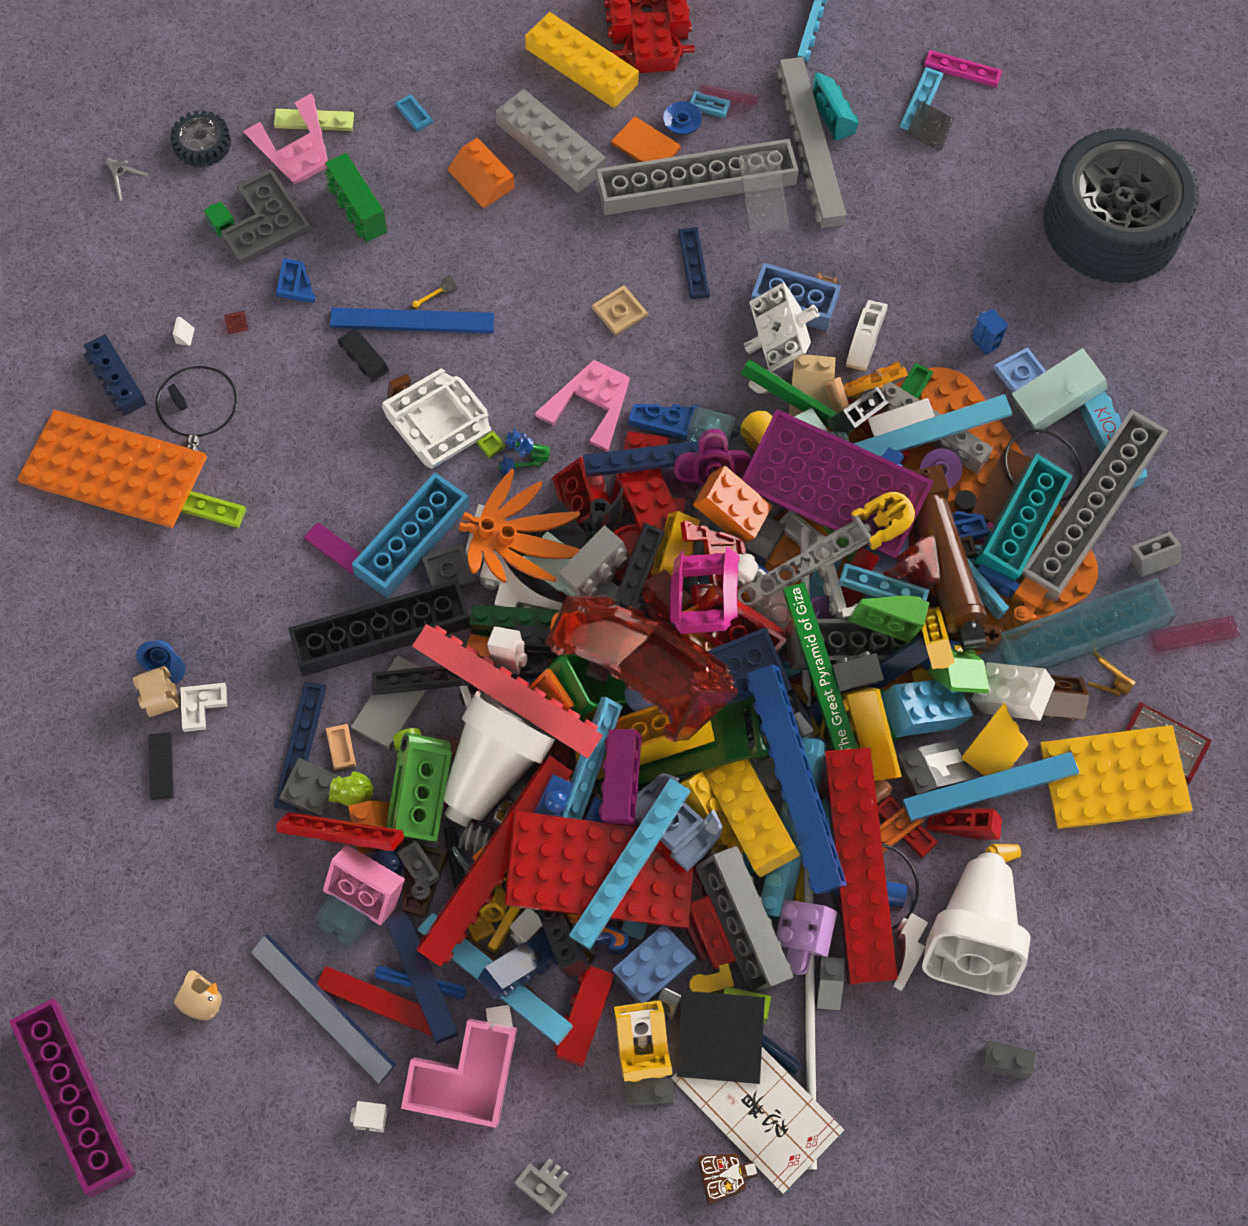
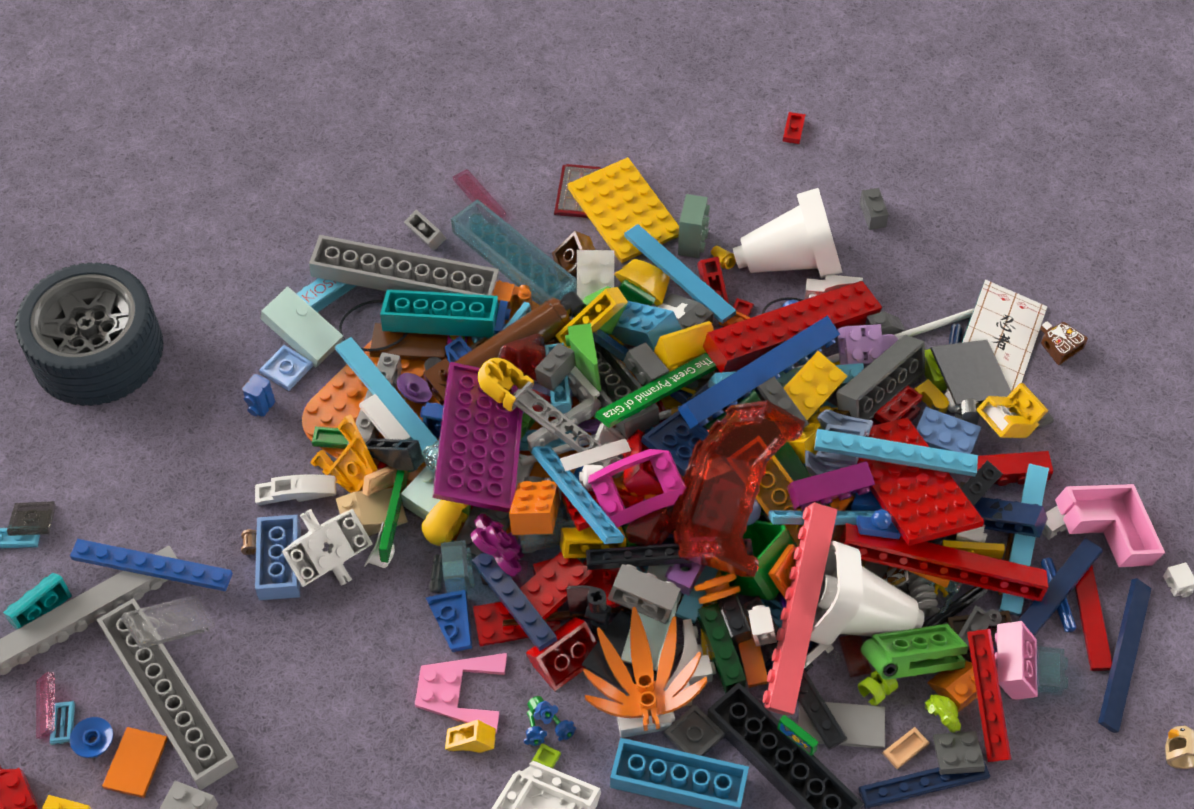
camera: 110 degrees left, 10 degrees down
(387, 635) = (797, 735): none -> green tile
(536, 389) = (471, 736): none -> yellow arch
(543, 1185) = (1143, 447): light grey hinge -> none
(619, 310) = (347, 706): tan tile -> none
(693, 263) = (266, 663): dark blue tile -> none
(717, 540) = (578, 495): none -> dark azure tile
(741, 779) = (774, 392): none -> dark grey plate
(766, 580) = (595, 454): none -> white sticker
(828, 194) = (151, 565): none -> blue plate
(886, 575) = (555, 367): none -> dark grey brick
(977, 727) = (635, 294): none -> green tile
(1047, 824) = (693, 226): none -> sand green brick
(1122, 682) = (545, 226): pearl gold plant -> none
(1179, 1034) = (794, 128): none -> red plate

